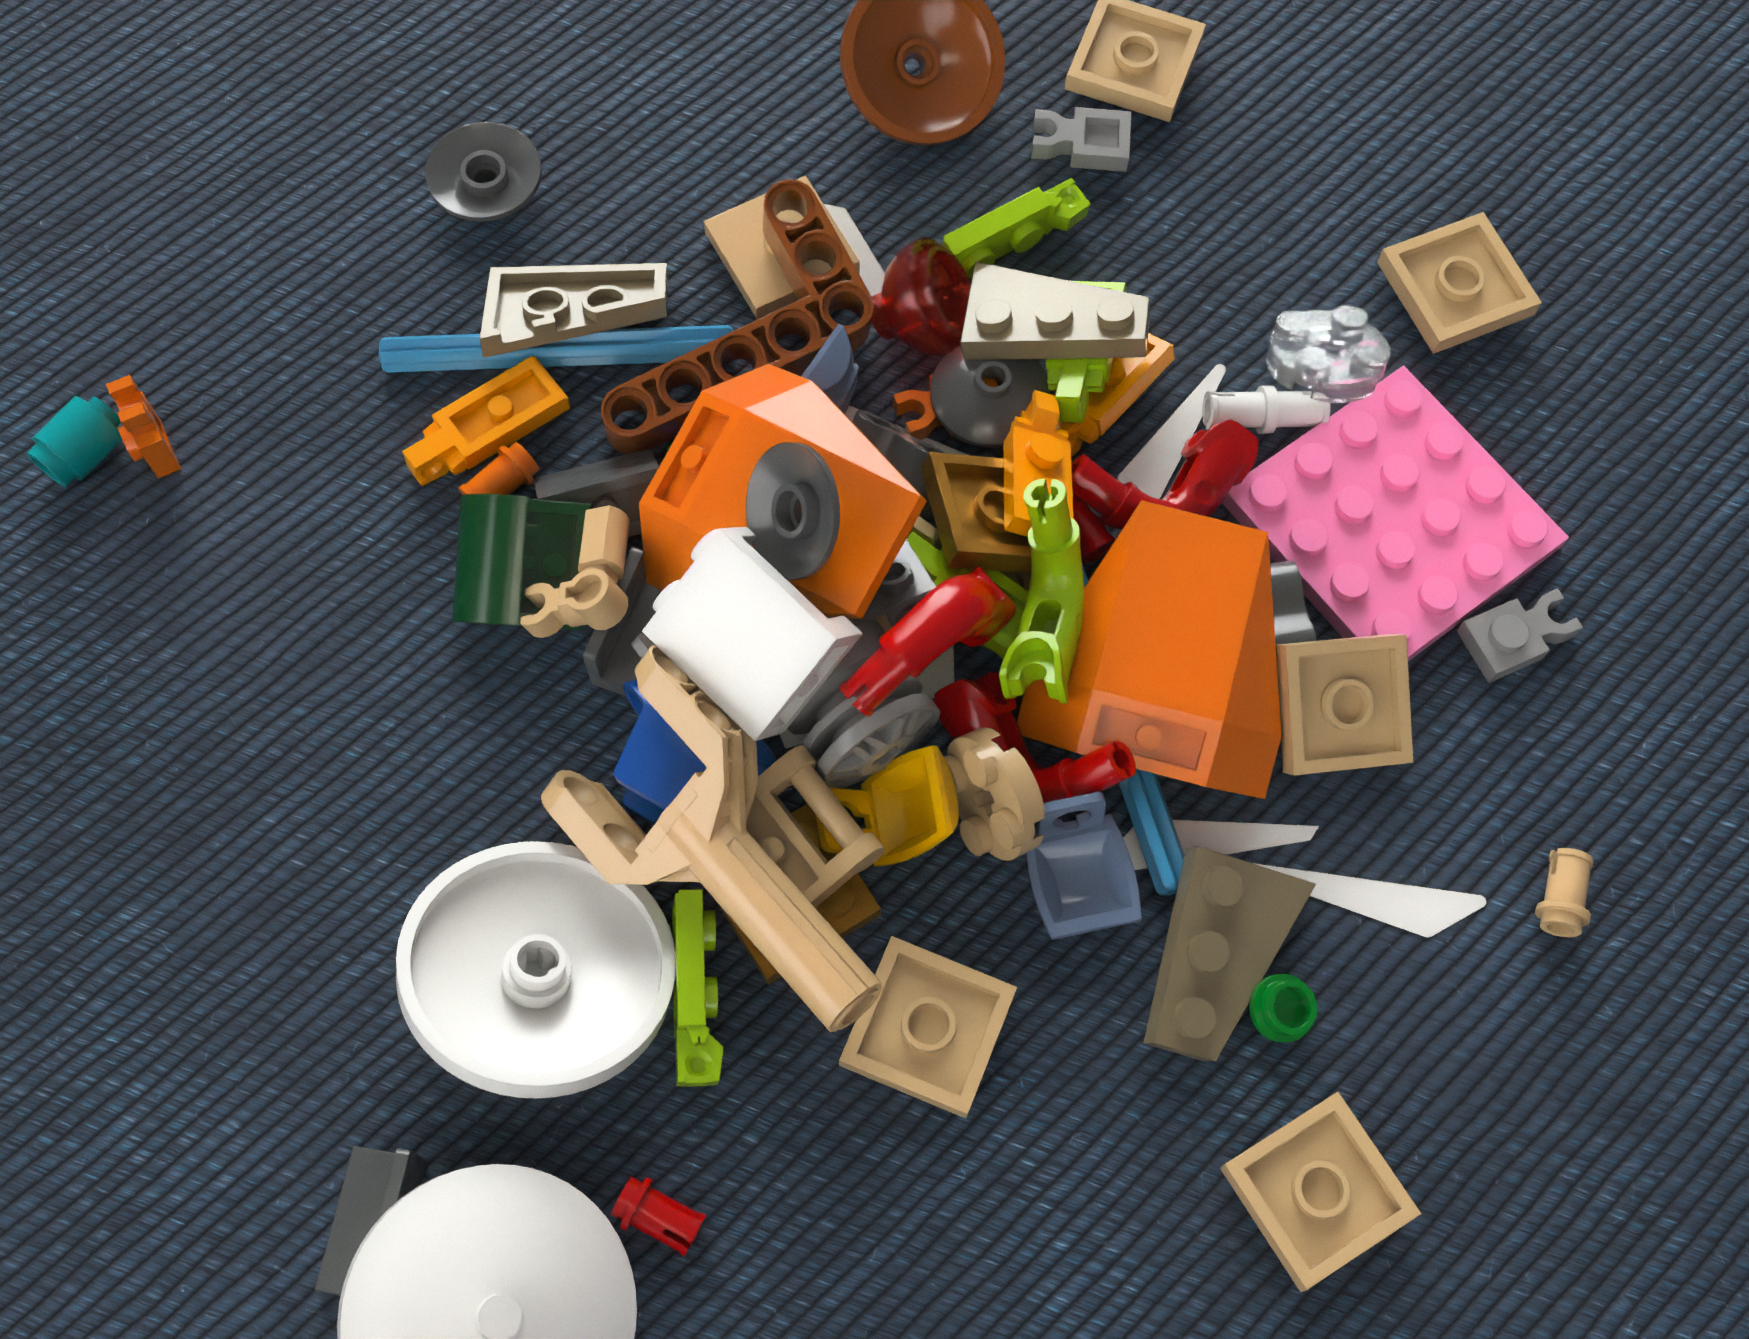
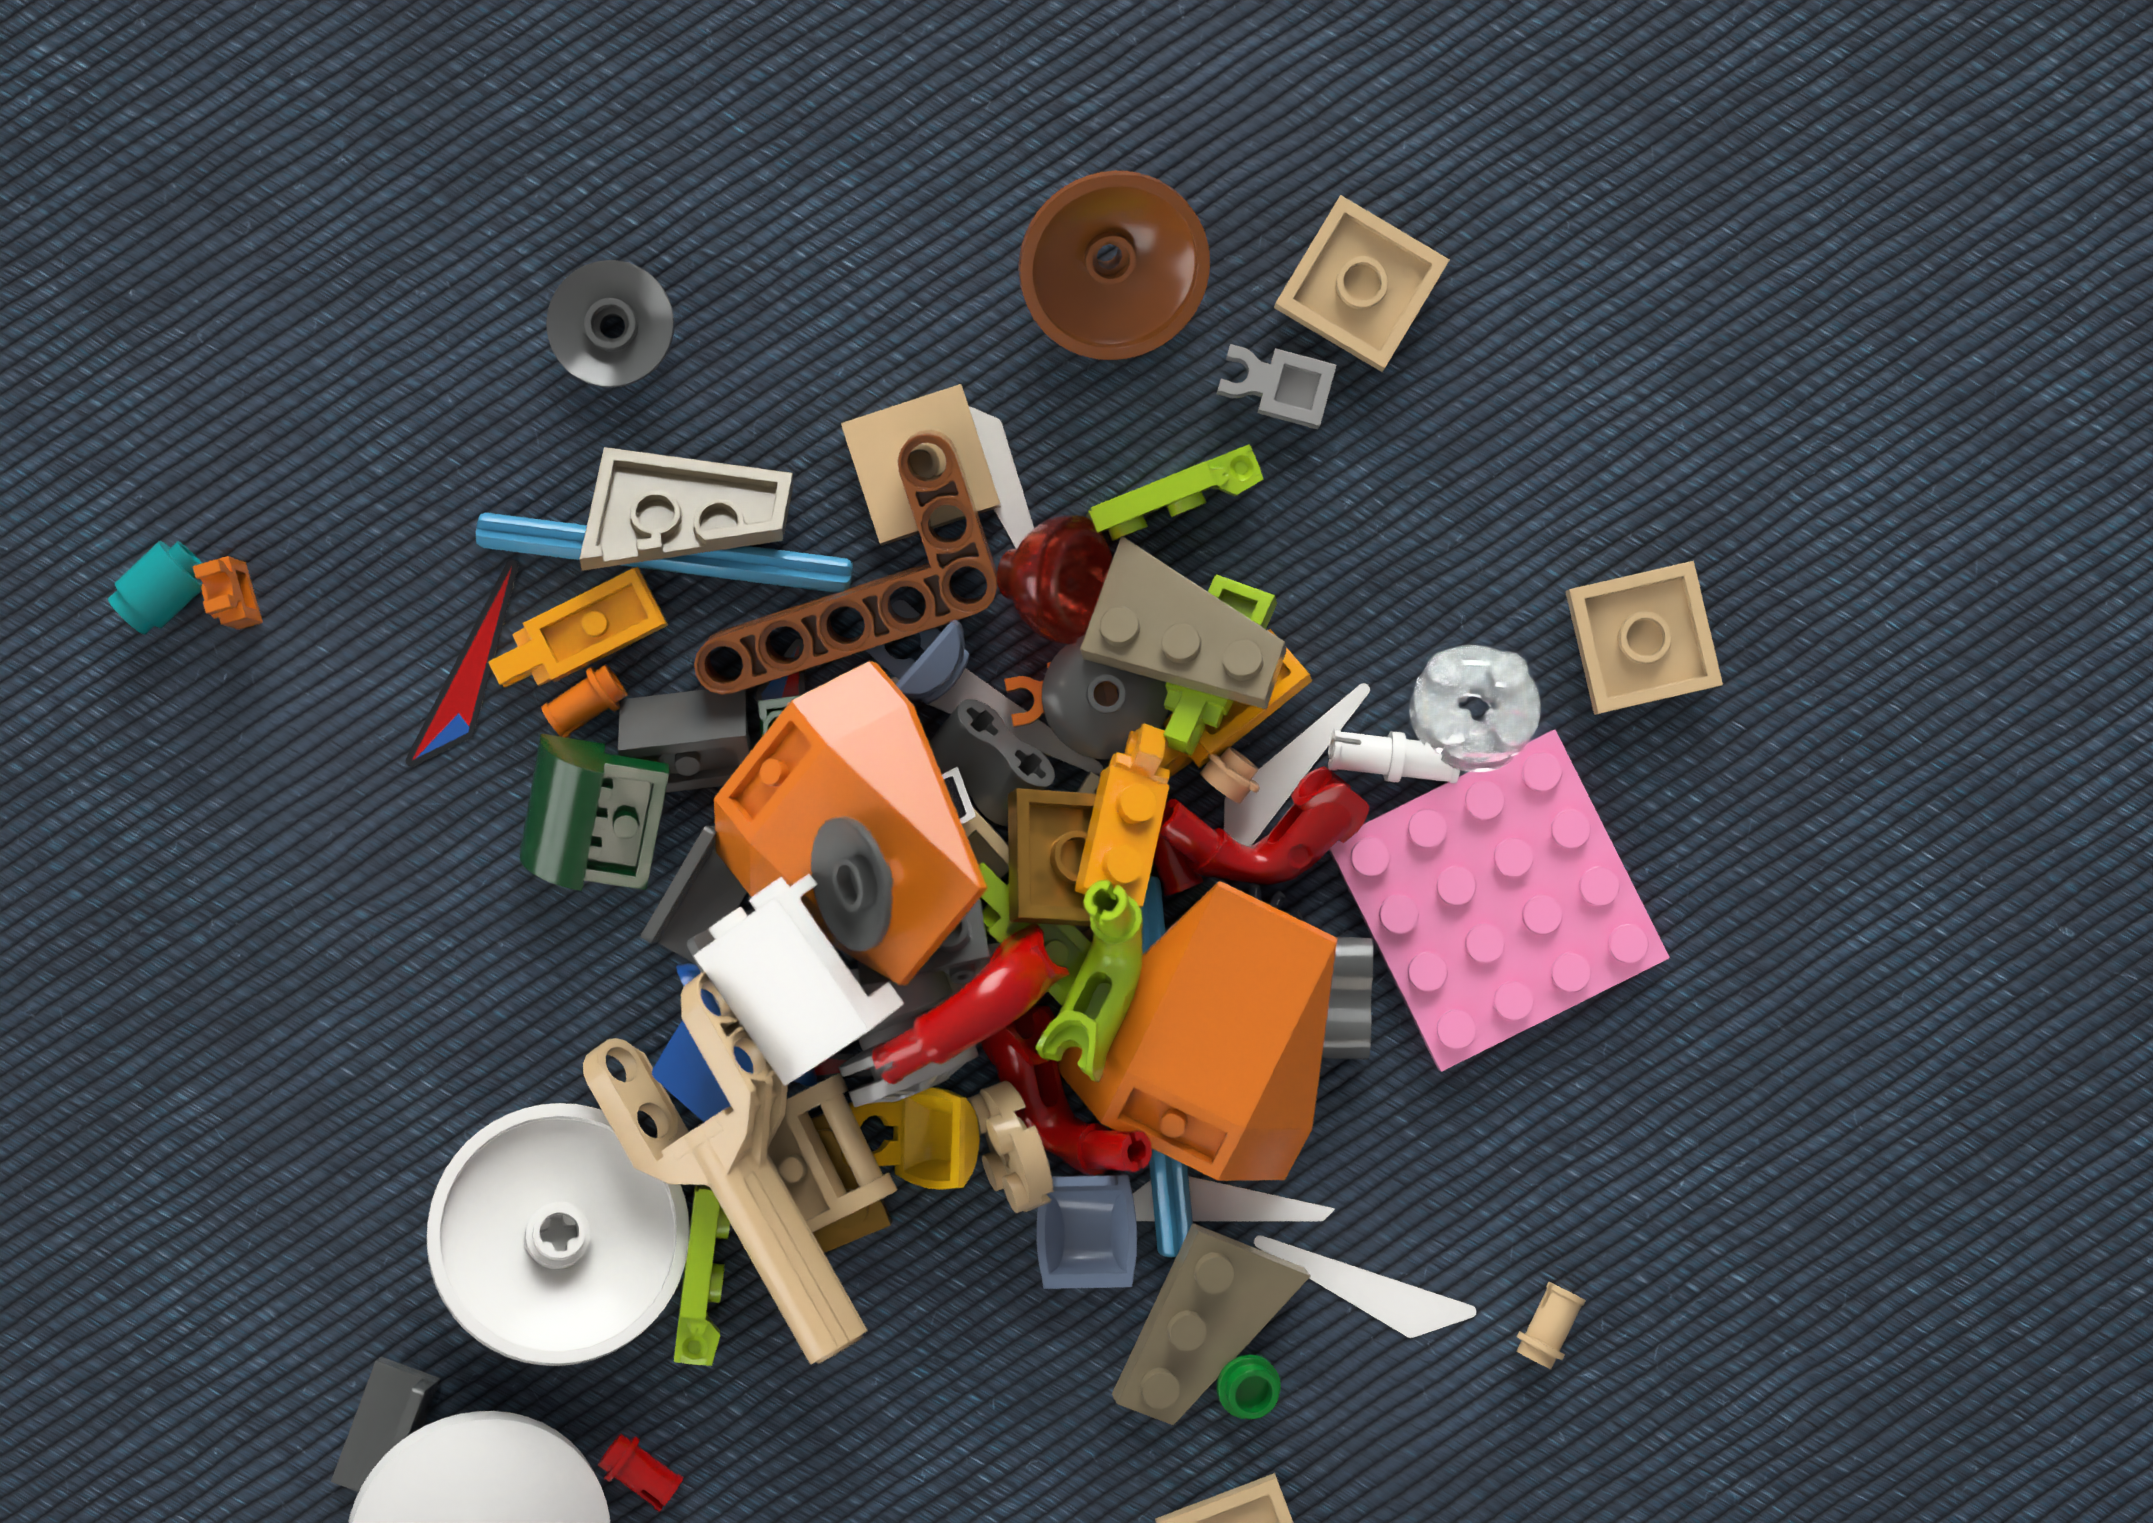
camera: 20 degrees right, 20 degrees up
(380, 501) = (461, 697): none -> sticker
(592, 594) = (660, 881): tan bar -> none
(929, 1027) = (916, 1347): tan plate -> none
(1120, 444) = (1231, 774): none -> light nougat plate
(1344, 704) = (1382, 1107): tan plate -> none
(1515, 638) = (1578, 1051): light grey plate -> none

